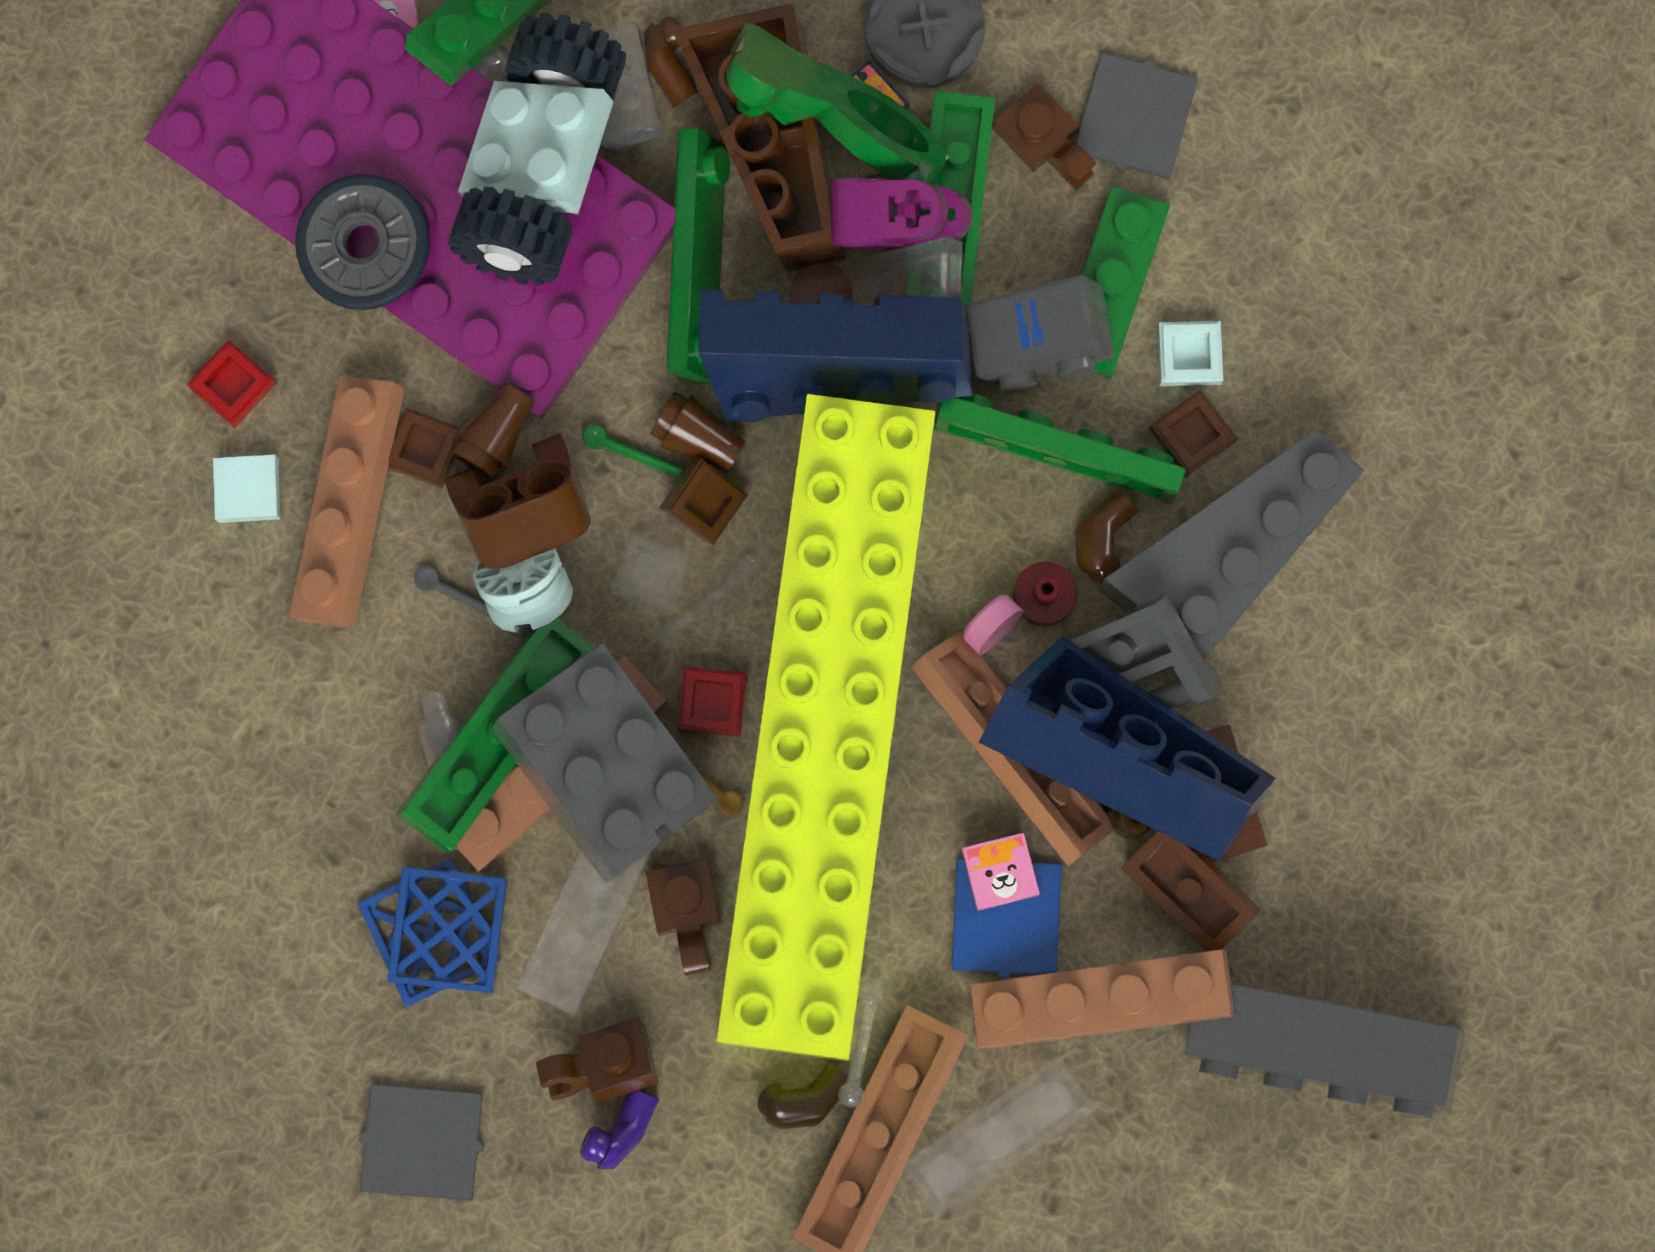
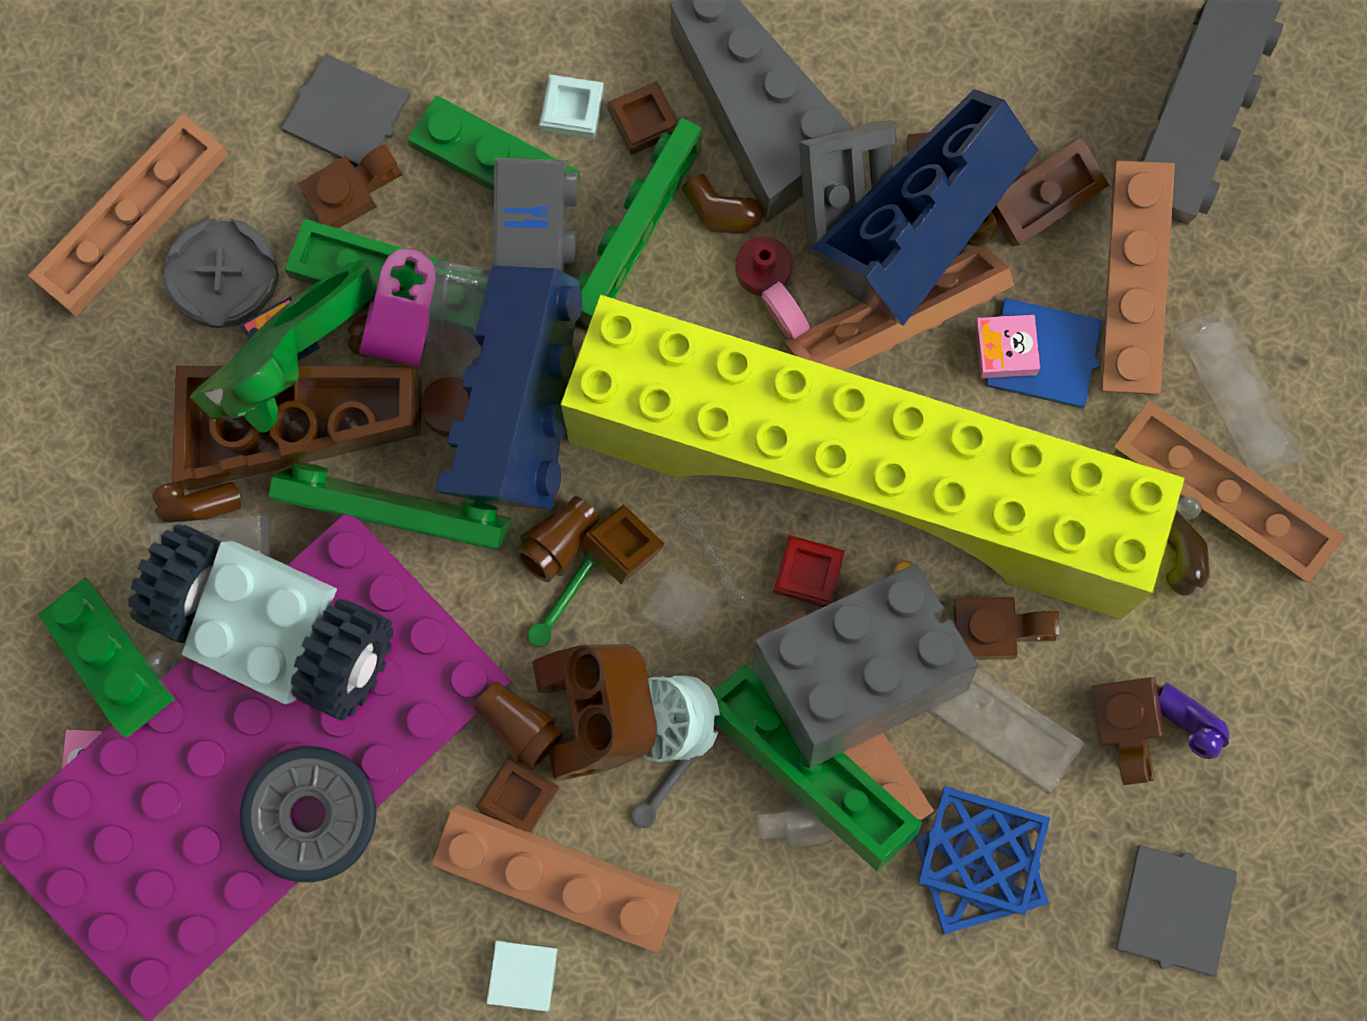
camera: 80 degrees left, 5 degrees down
(231, 383) = (414, 974): red tile -> none

